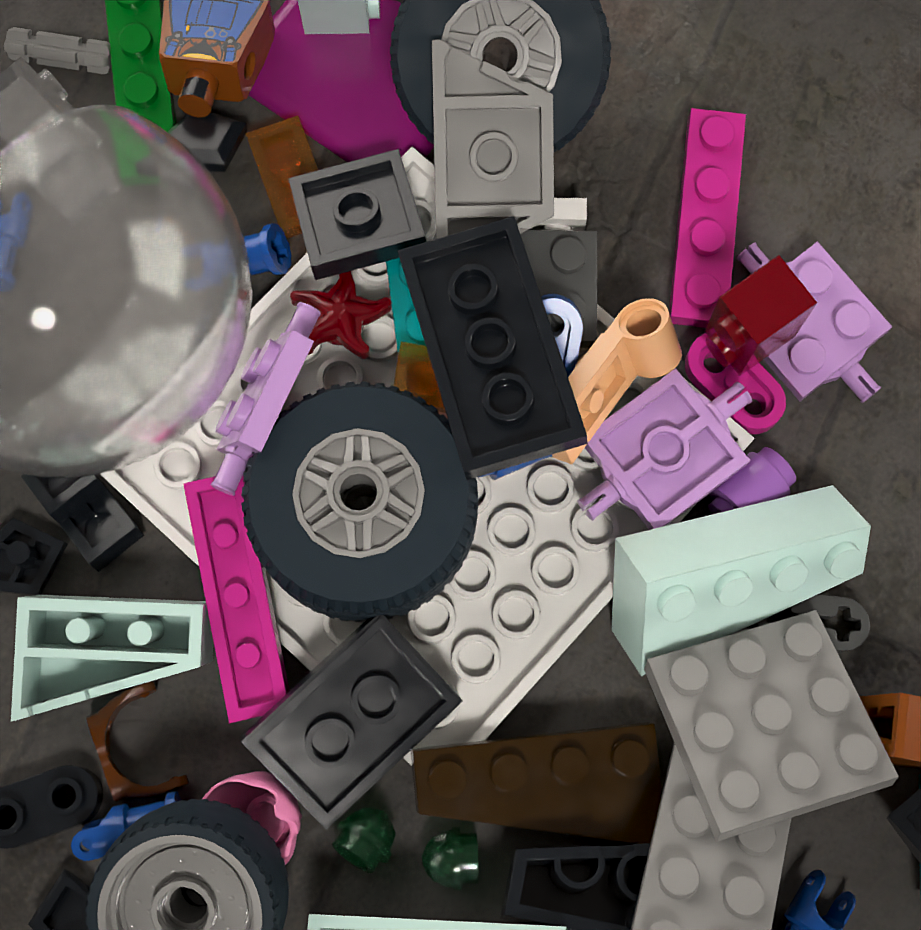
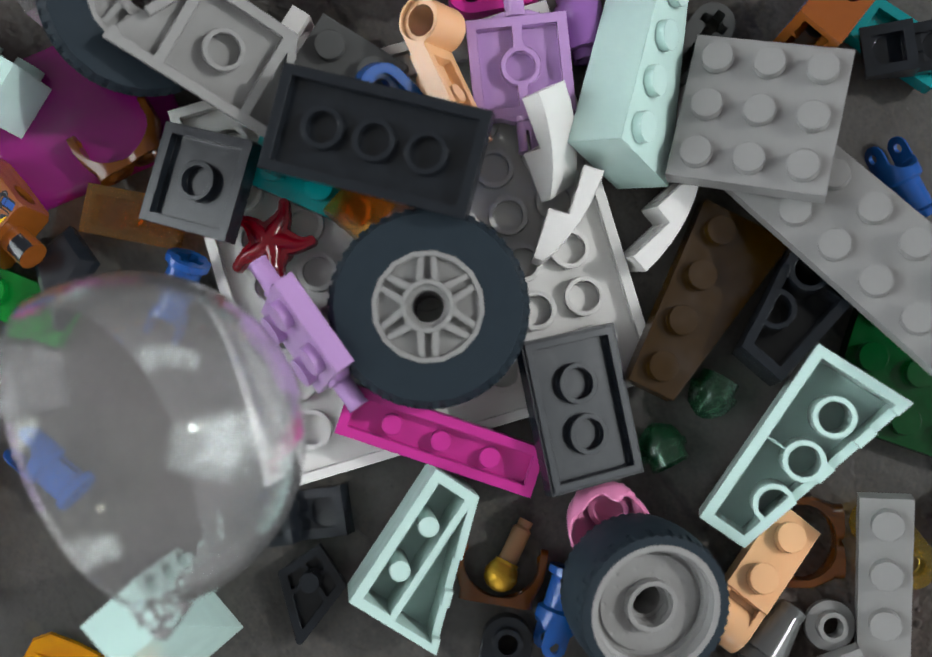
camera: 55 degrees left, 10 degrees up
(138, 747) = (502, 571): none -> piece
(323, 134) = (144, 154): none -> reddish brown cap
(523, 586) = (560, 225): none -> white slope
(587, 537) = (554, 160): none -> white slope
(615, 694) = (667, 215): none -> white slope

